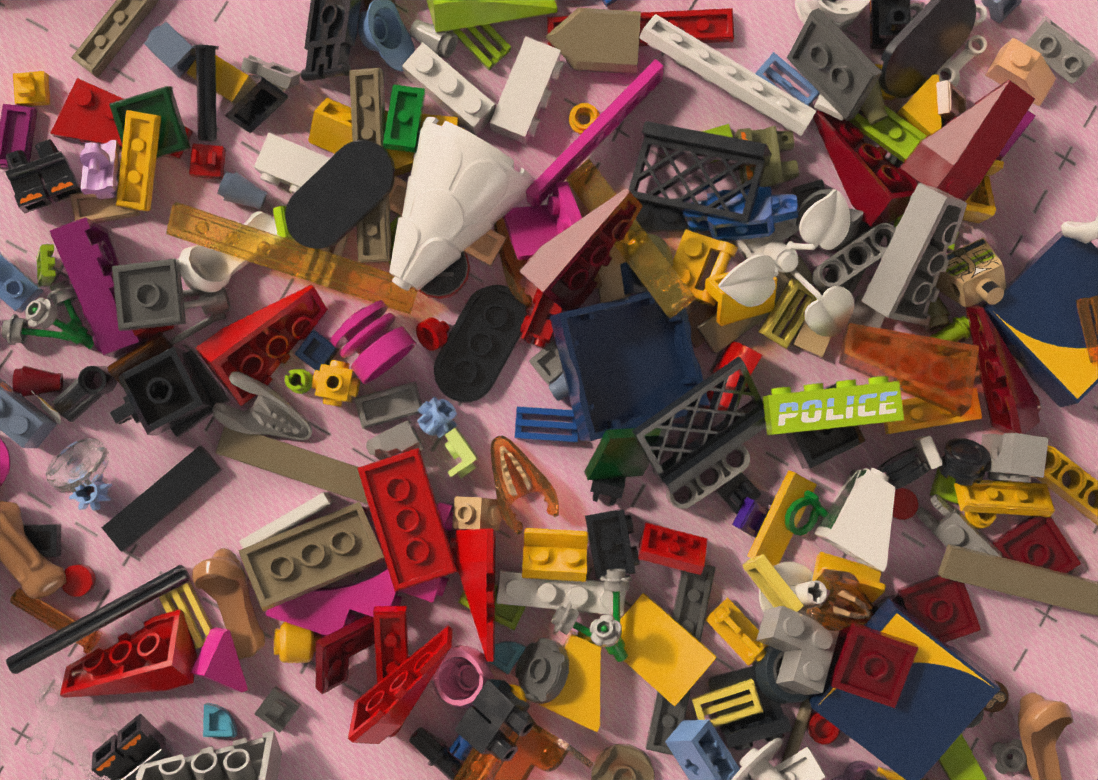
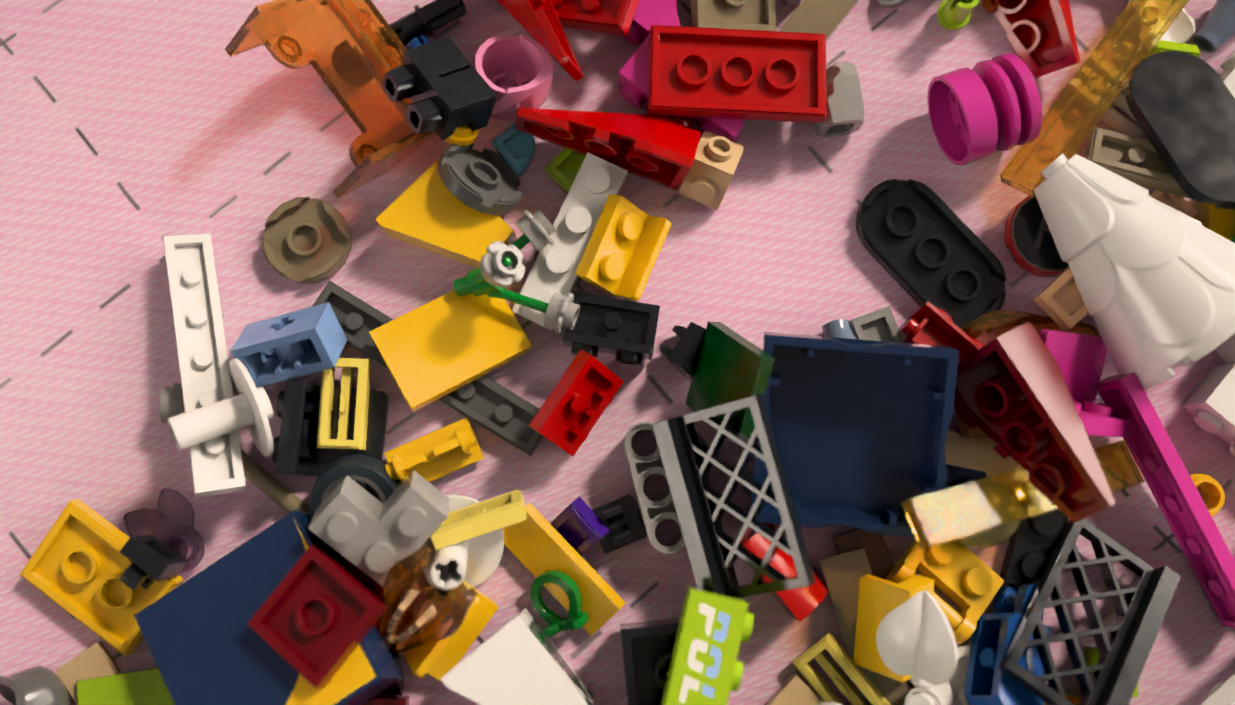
camera: 110 degrees right, 5 degrees down
(316, 350) = (984, 42): dark blue tile -> none
(347, 387) = (940, 48): yellow brick -> none
(388, 405) = (887, 112): light grey tile -> none
(432, 333) = (966, 194): red tile -> none
(437, 417) = (854, 161): light blue gear -> none
(460, 448) = (802, 179): yellowish green bracket -> none
(515, 478) = (738, 234): clear orange animal -> none
(547, 424) = (810, 268): blue tile -> none
(821, 729) = (260, 517): red tile -> none

